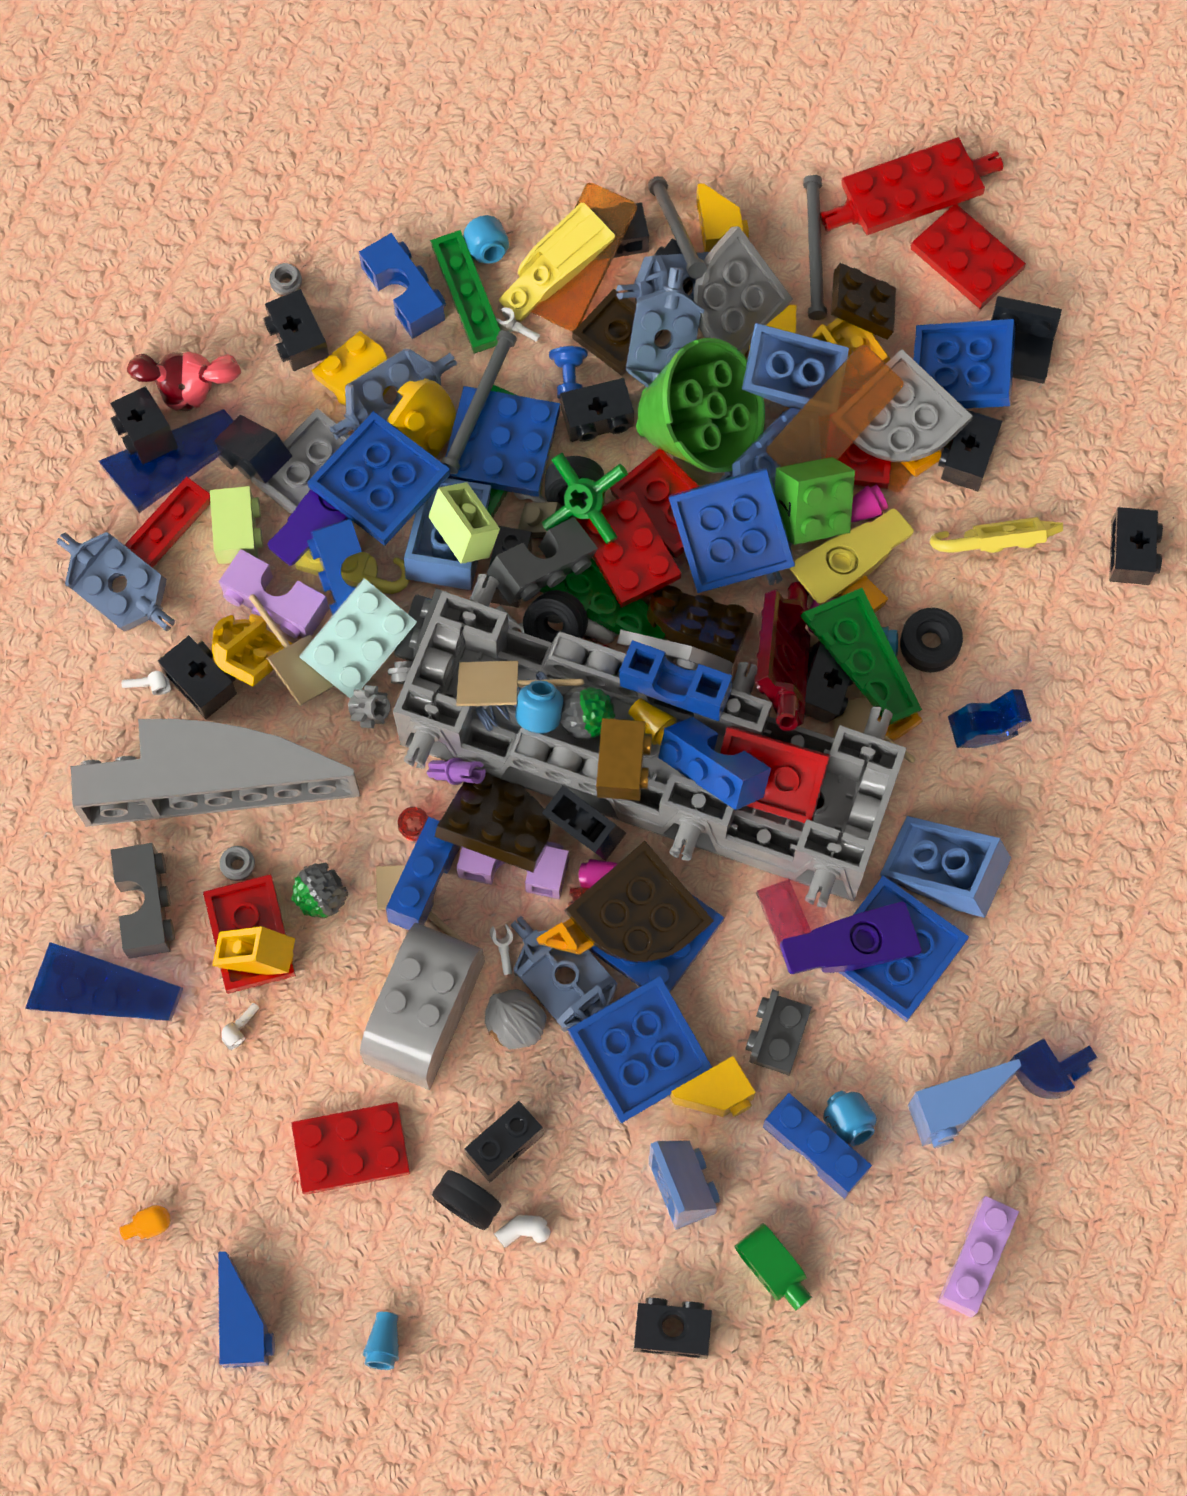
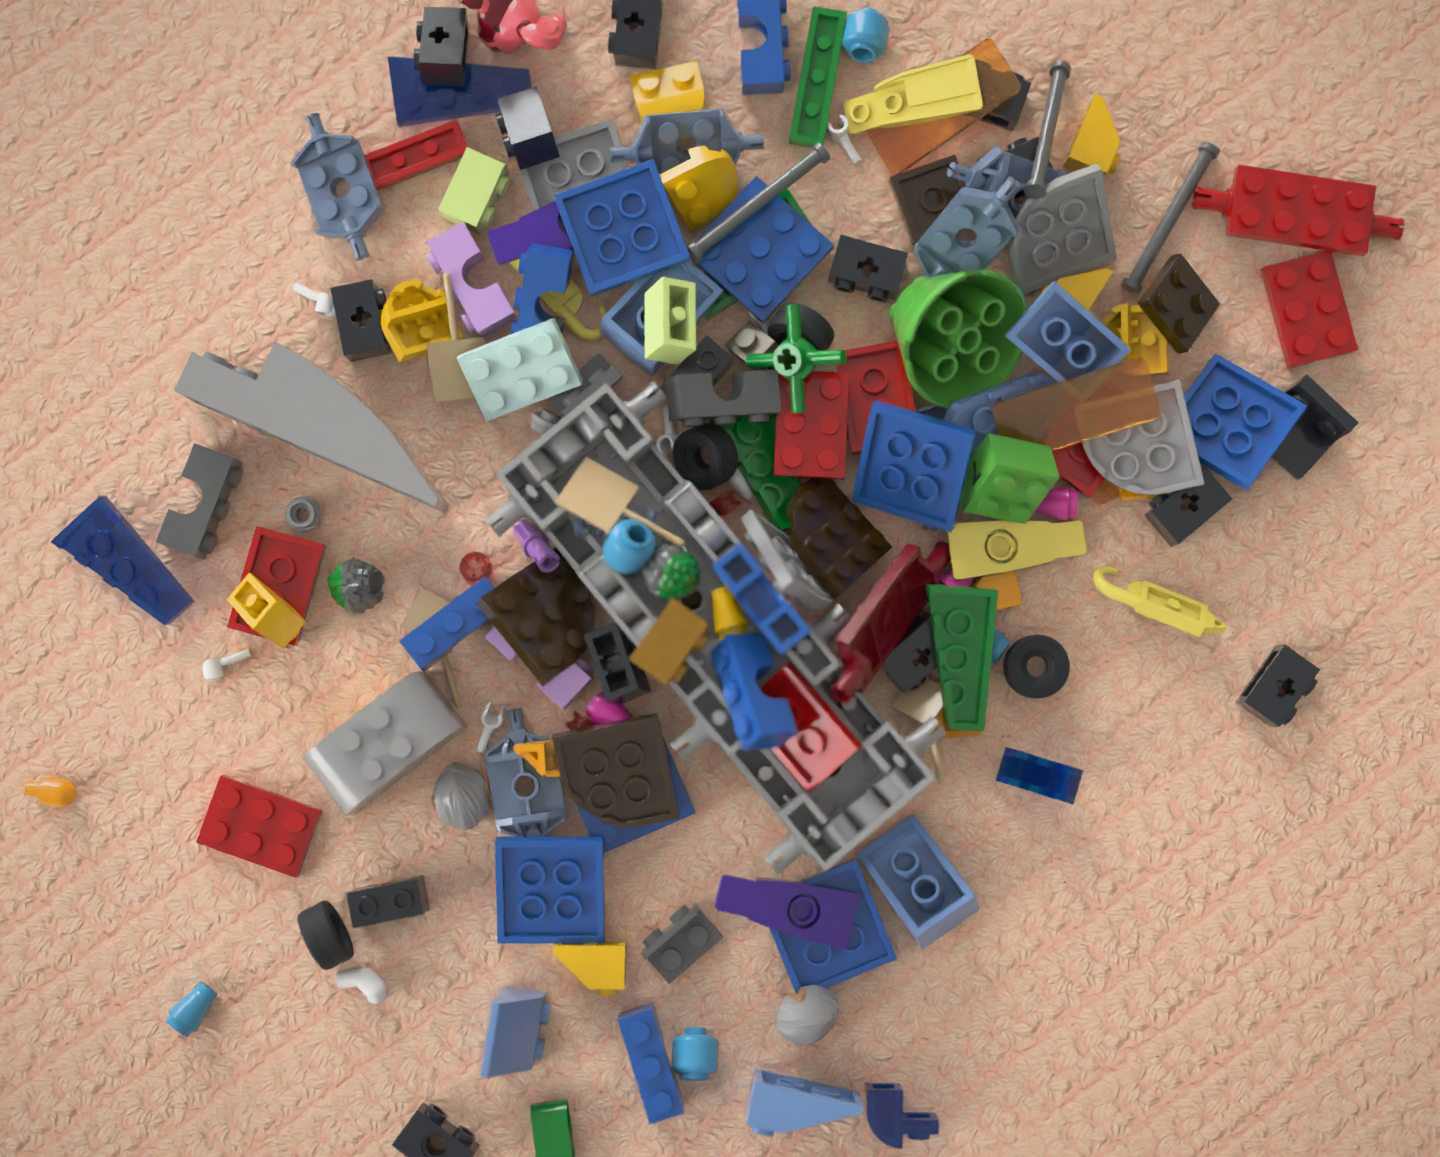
camera: 30 degrees right, 15 degrees up
(242, 1329) = (84, 923): blue slope -> none
(369, 706) = (495, 438): light grey gear -> none
(568, 358) = (869, 203): blue piece -> none
(783, 911) = (750, 843): clear pink plate -> none
(923, 1026) = (808, 1014): none -> light grey hair

